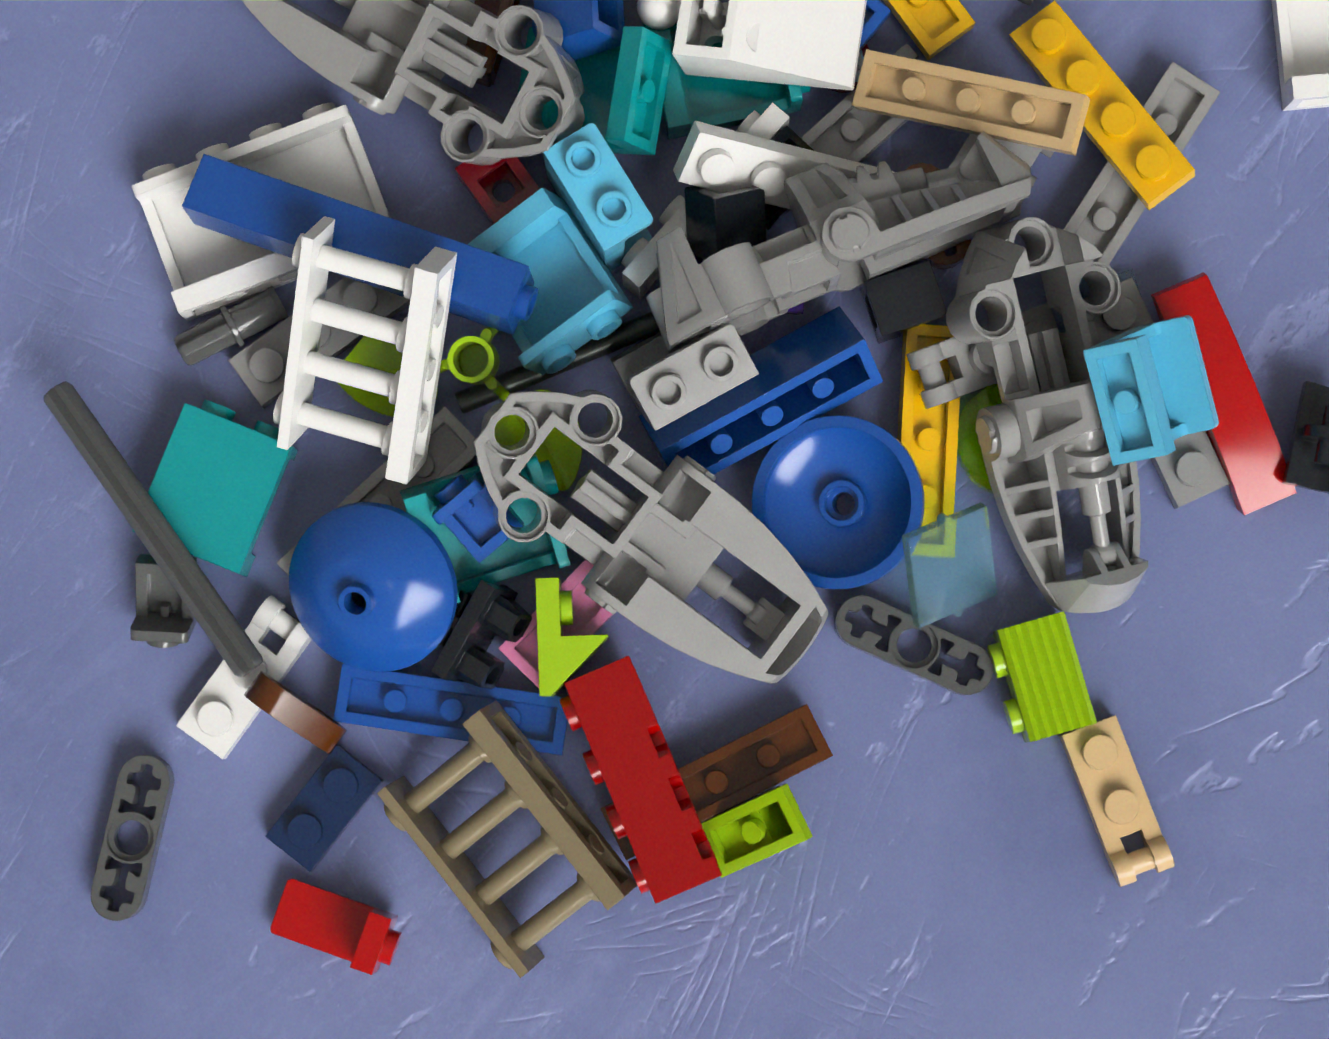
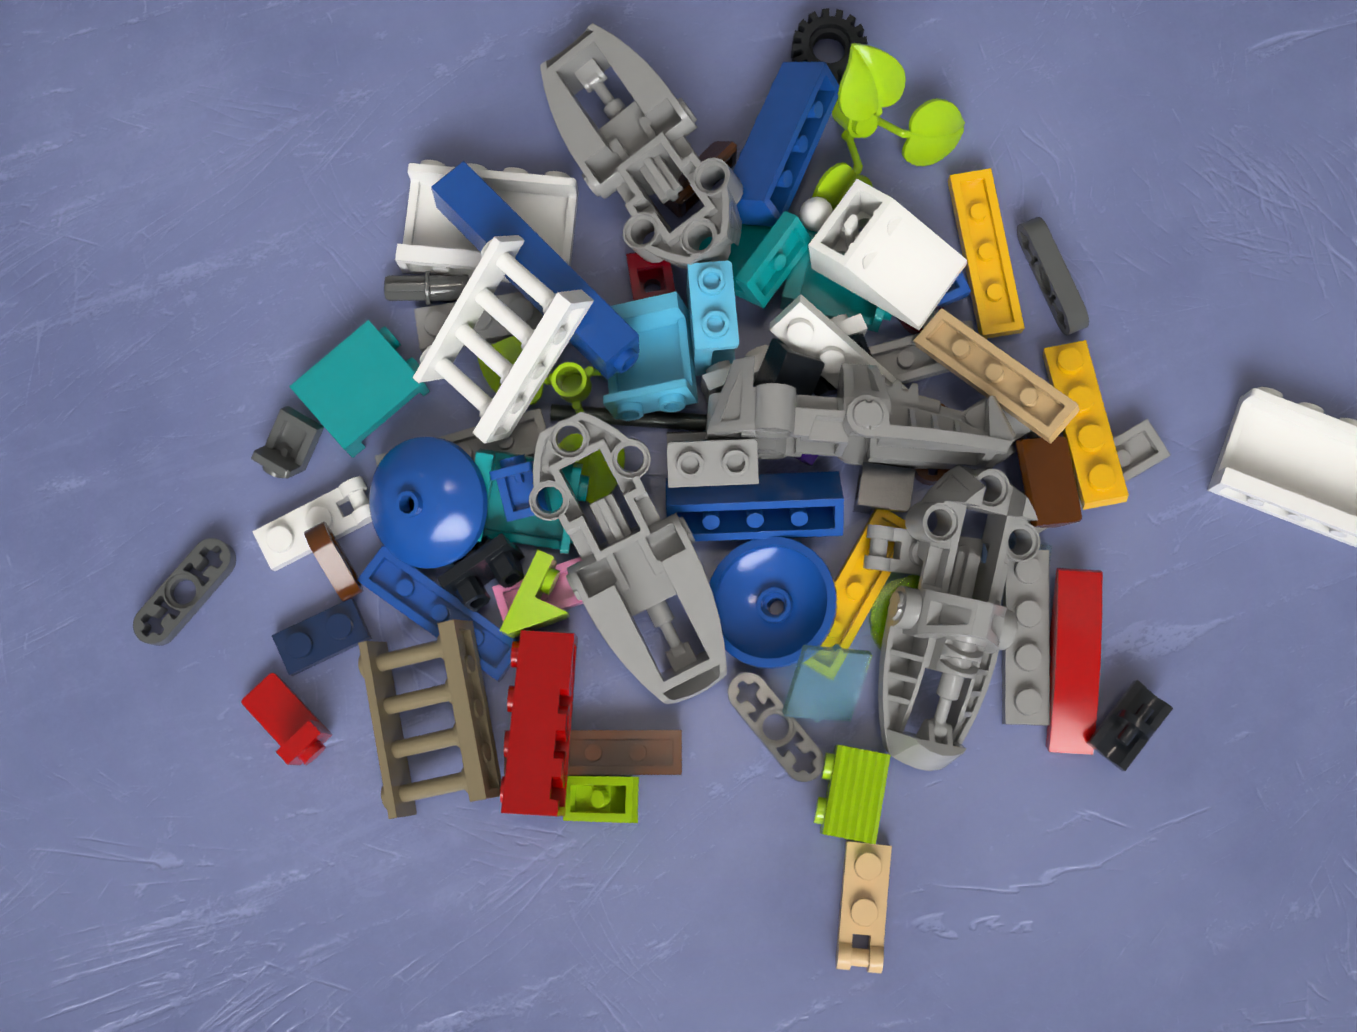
camera: 25 degrees right, 5 degrees down
(153, 529) = (302, 392): dark grey axle -> none
(1094, 198) = (1049, 481): none -> reddish brown slope
(1151, 389) = (1026, 629): medium azure panel -> none

